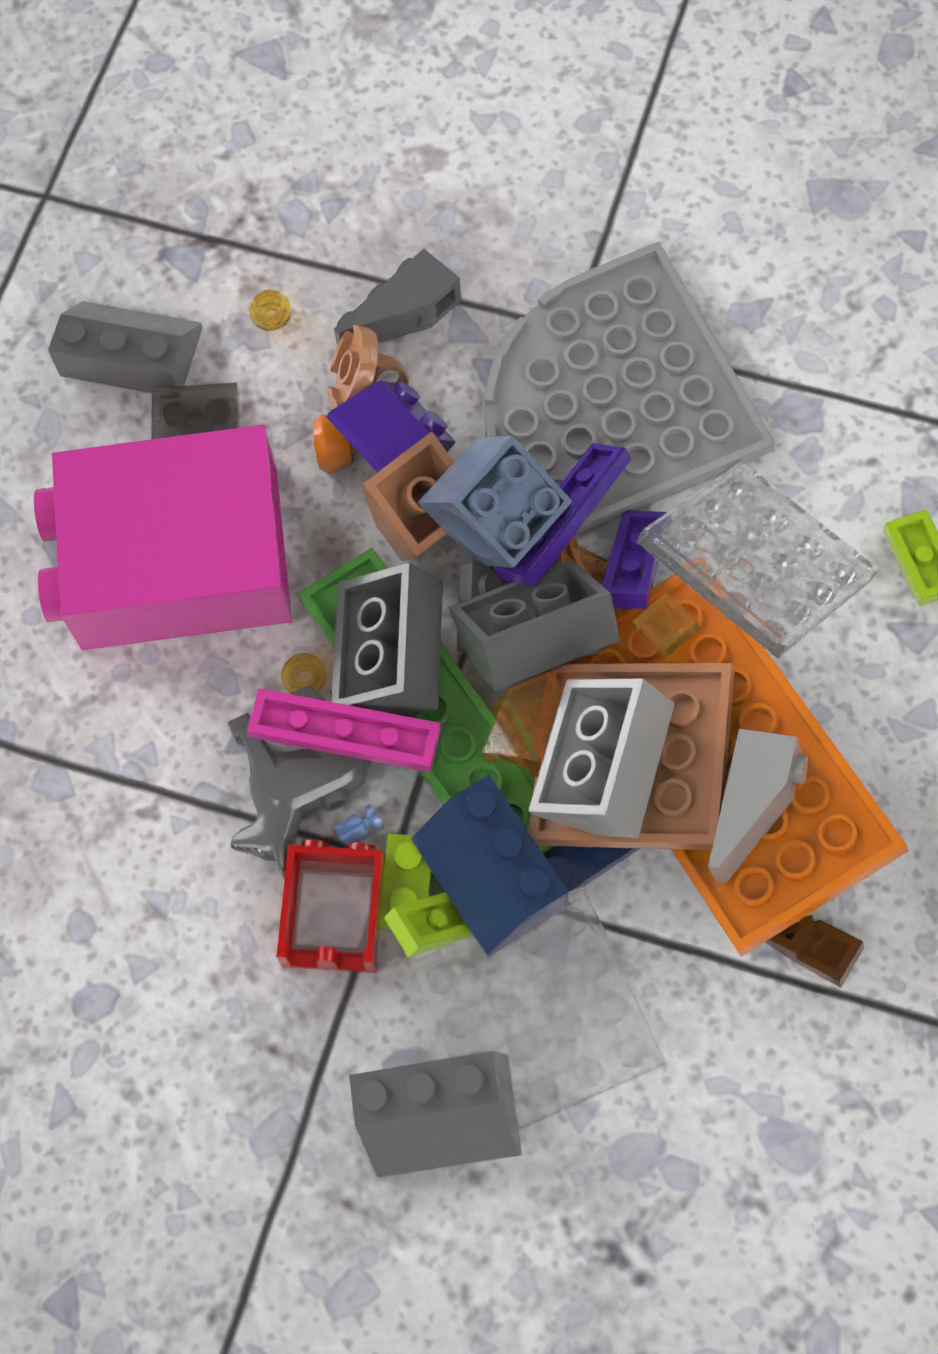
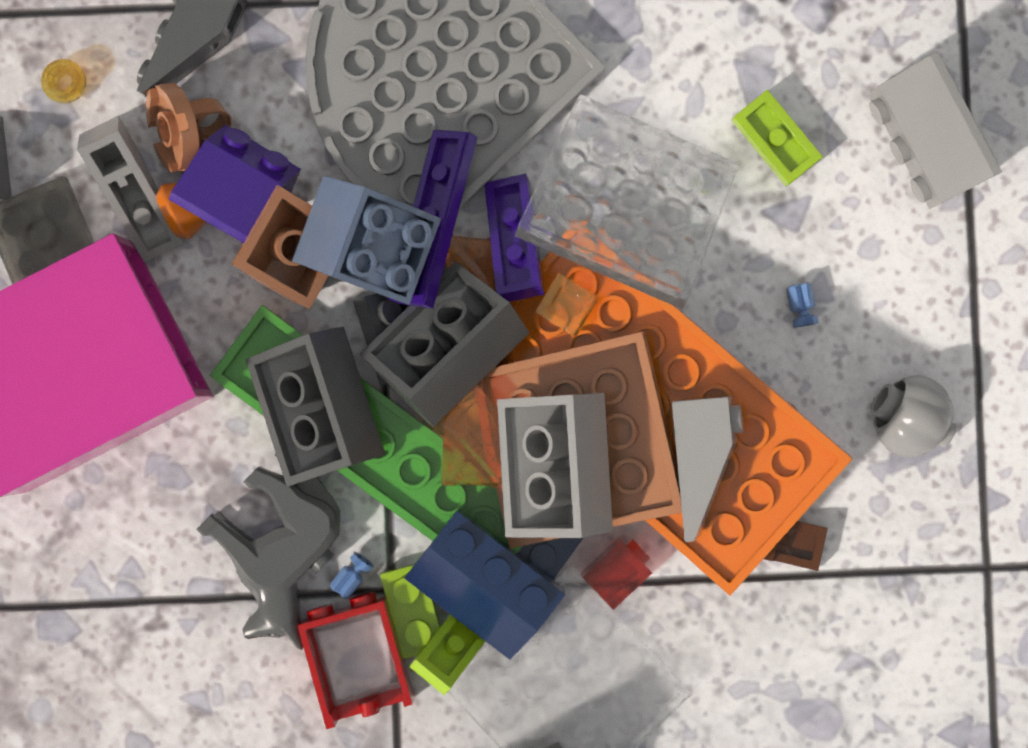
camera: 25 degrees left, 20 degrees up
(291, 413) = (127, 186): none -> light grey slope
(299, 663) = (232, 452): clear yellow plate -> none
(344, 730) = (307, 507): dark pink plate -> none
(630, 909) = (617, 571): none -> clear red brick
(902, 715) = (801, 301): none -> medium blue piece

